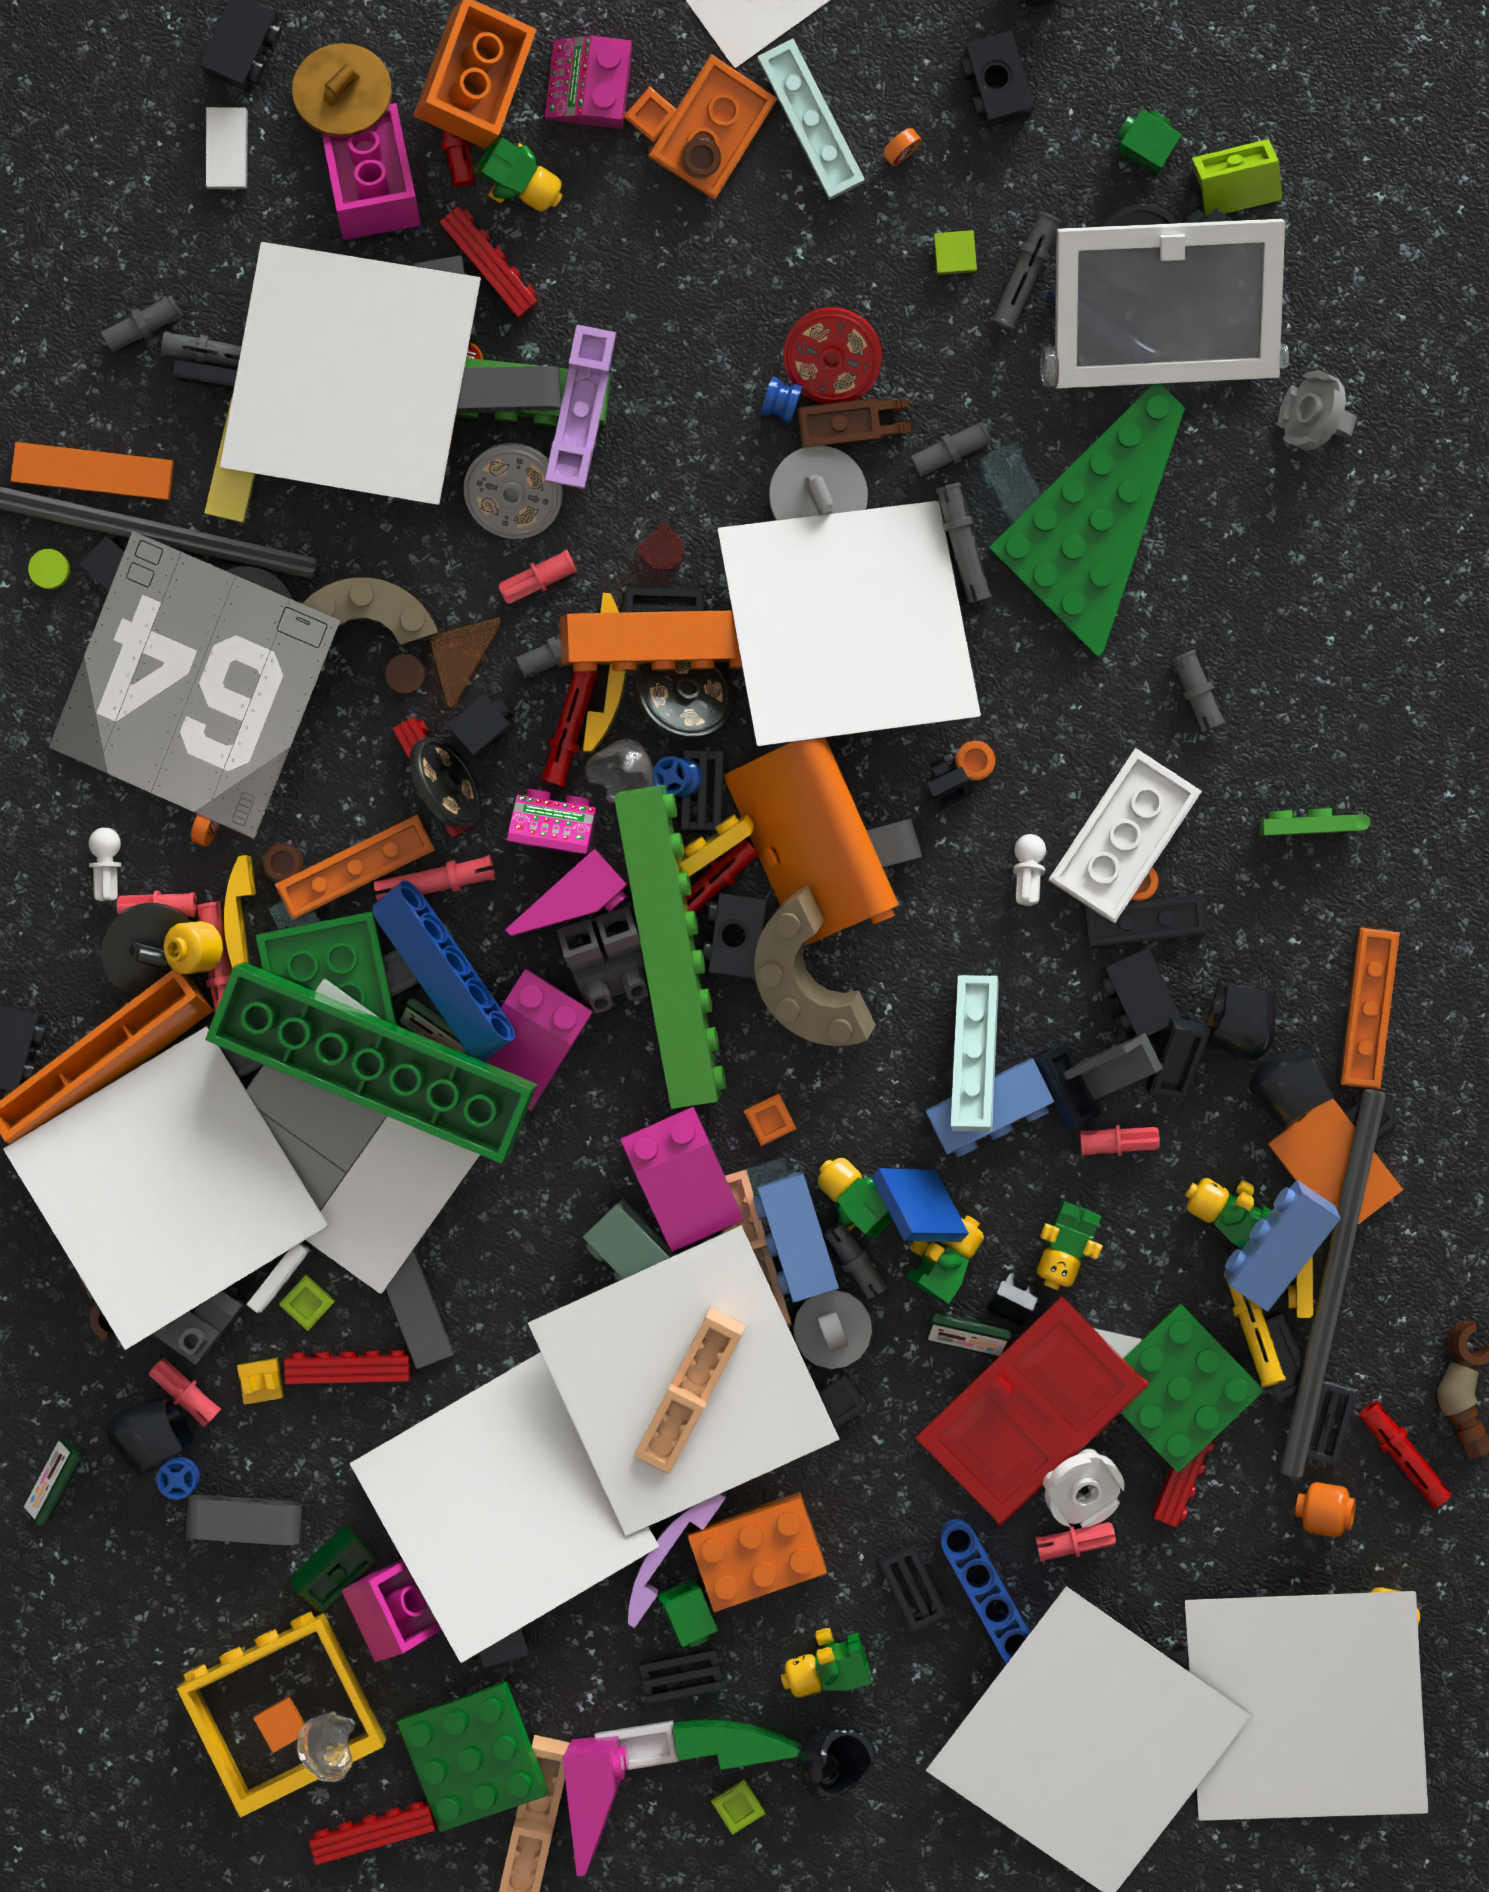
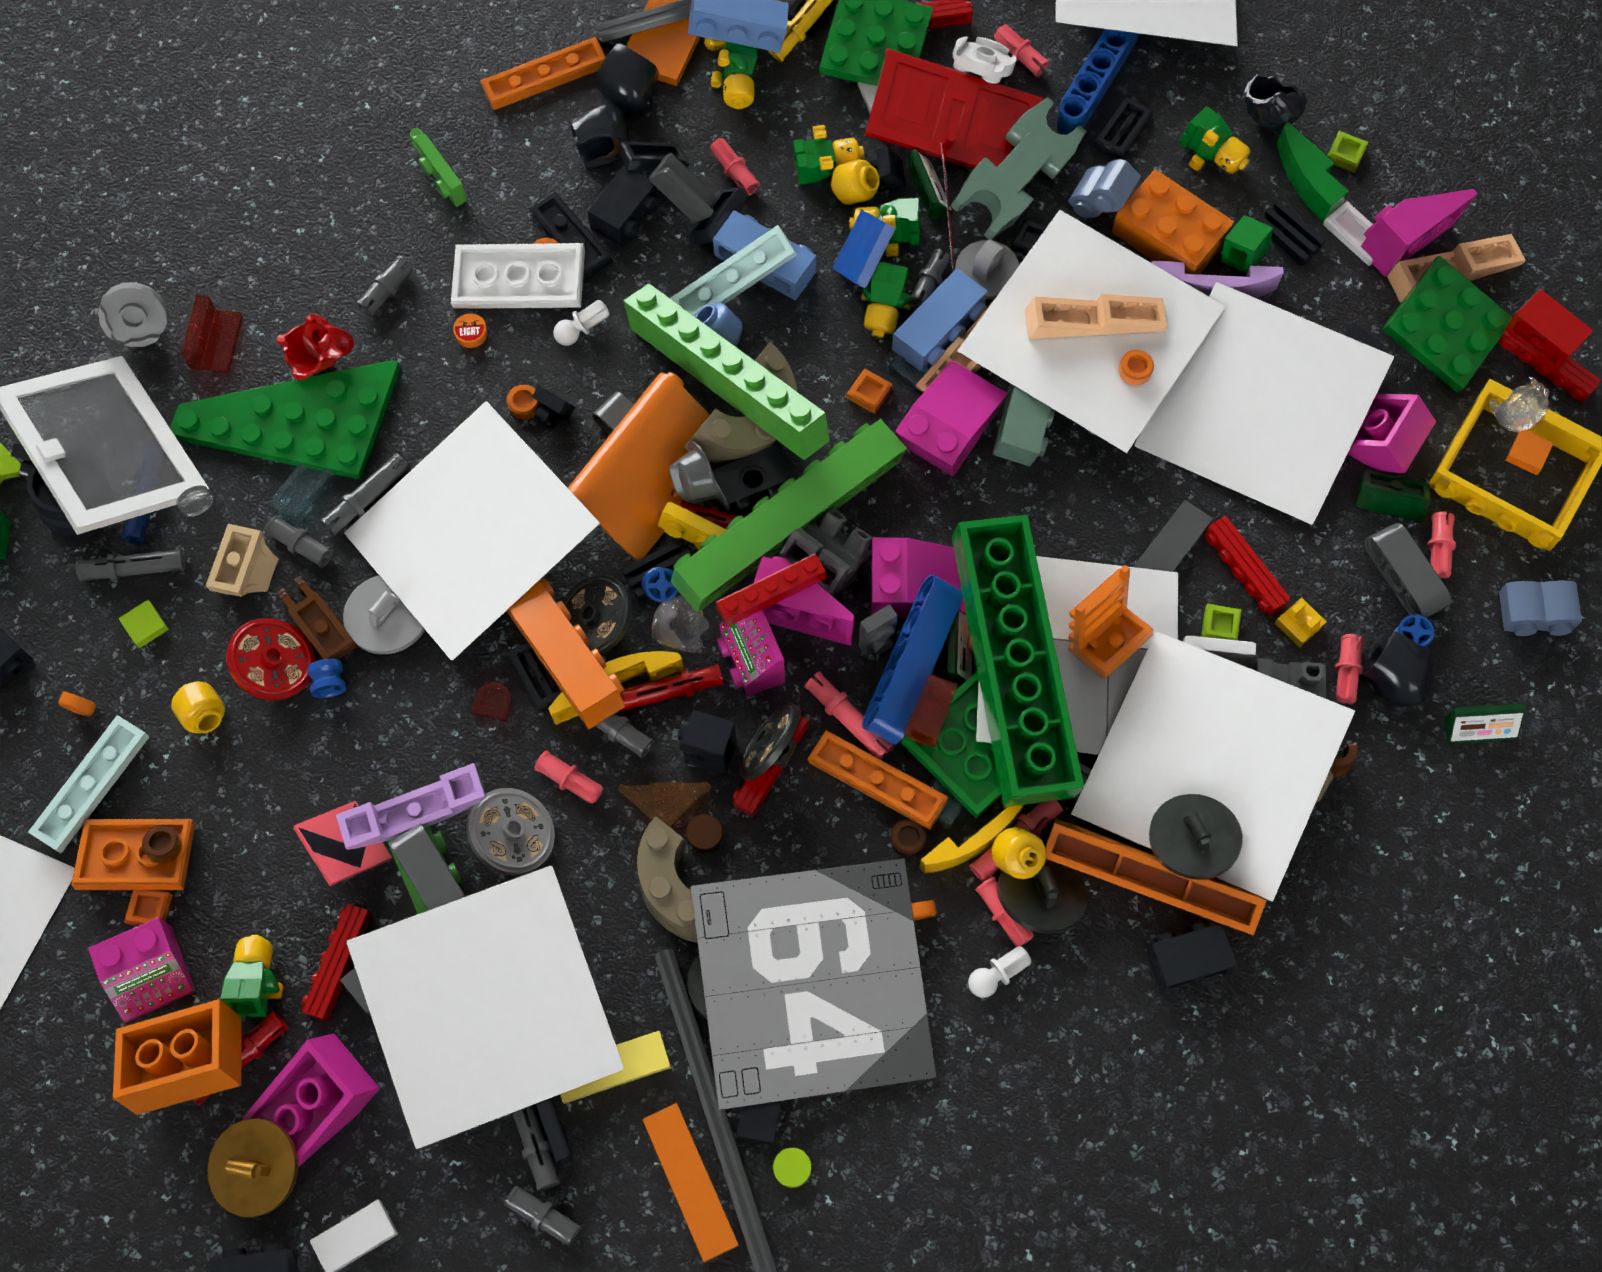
camera: 120 degrees left, 20 degrees down
(103, 1118) = (1195, 836): none -> pearl dark grey shield
(128, 1622) = (1540, 606): none -> sand blue brick
(249, 1574) = (1442, 543): none -> coral axle
(349, 1174) = (1104, 628): none -> orange plate
(377, 954) = (931, 711): none -> clear red leg
(395, 1845) = (1548, 330): none -> red panel
(492, 956) = (878, 631): none -> dark grey plate
(580, 868) = (771, 590): none -> red piece
(605, 310) = (326, 847): none -> coral piece
(610, 1393) = (1136, 367): none -> orange tile
(765, 872) = (695, 479): none -> dark grey piece
(825, 261) = (198, 707): none -> yellow head
(838, 1504) = (1104, 189): none -> sand blue brick
(857, 972) = (728, 371): none -> bright green brick
(925, 1332) = (948, 206): none -> red sticker
(928, 1003) = (722, 321): none -> medium blue head
(933, 1464) = (1003, 186): none -> sand green piece
(958, 380) = (242, 563): none -> tan slope
(1015, 1253) = (855, 182): none -> yellow head
(1092, 751) = (470, 330): none -> tile
(1160, 577) = (314, 346): none -> red hair
(1247, 482) = (211, 337): none -> clear red panel

